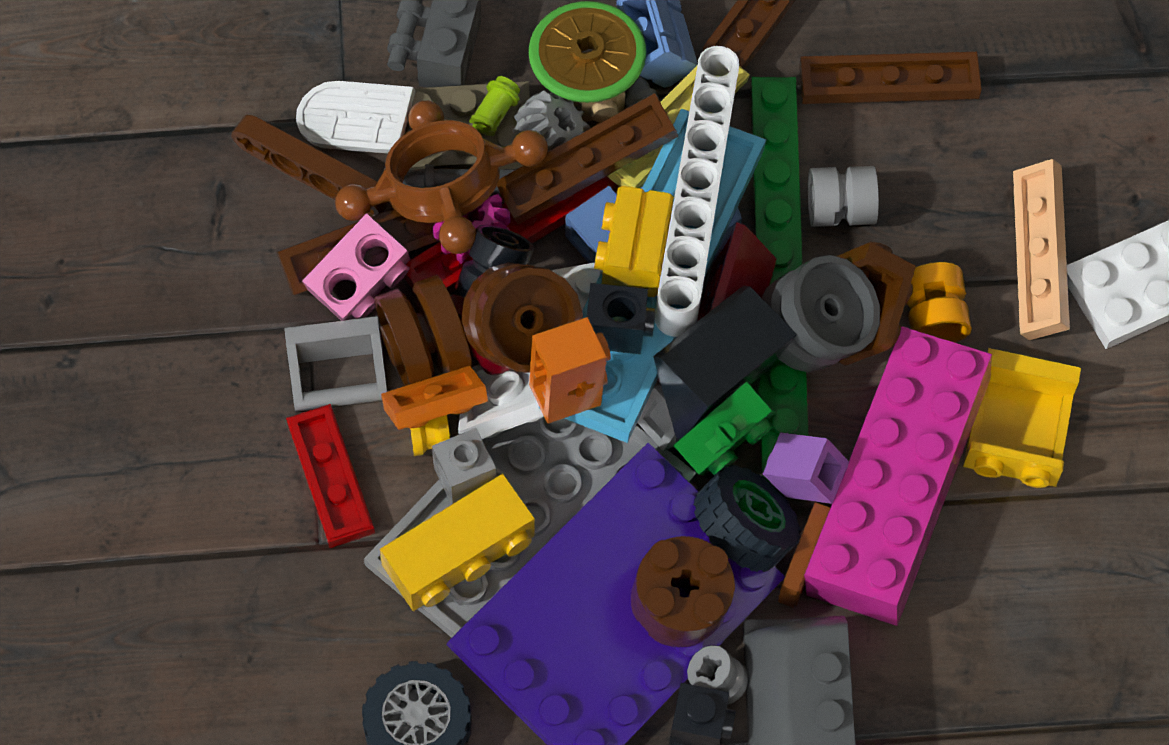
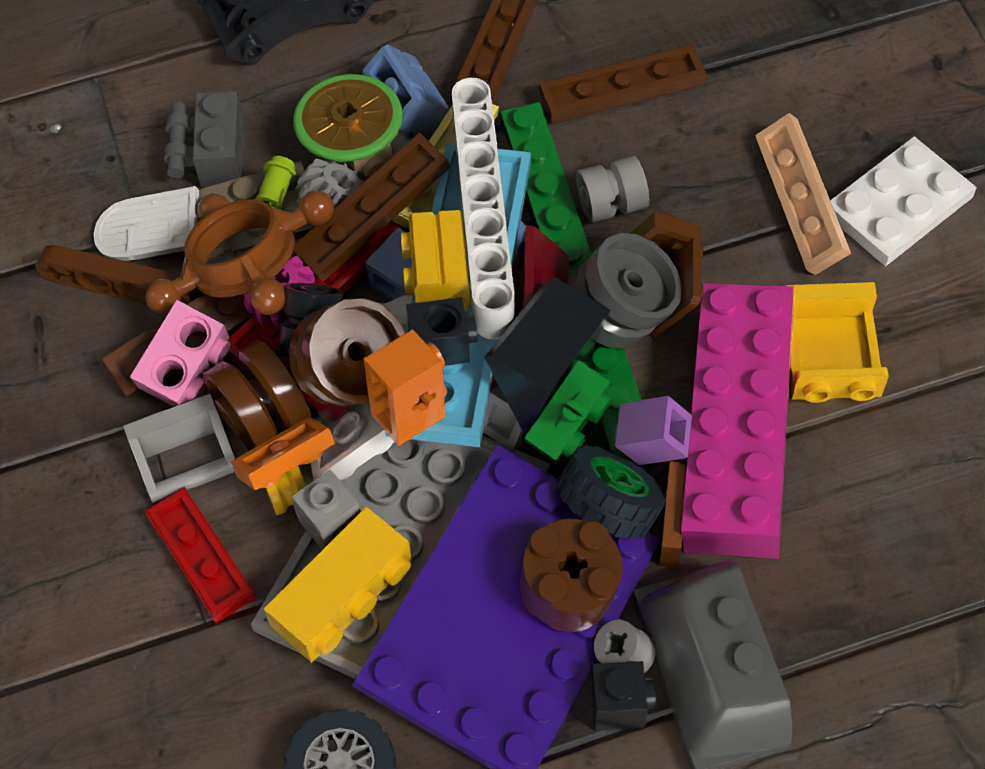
camera: 10 degrees left, 5 degrees down
(939, 302) = (727, 255): light orange wheel -> none

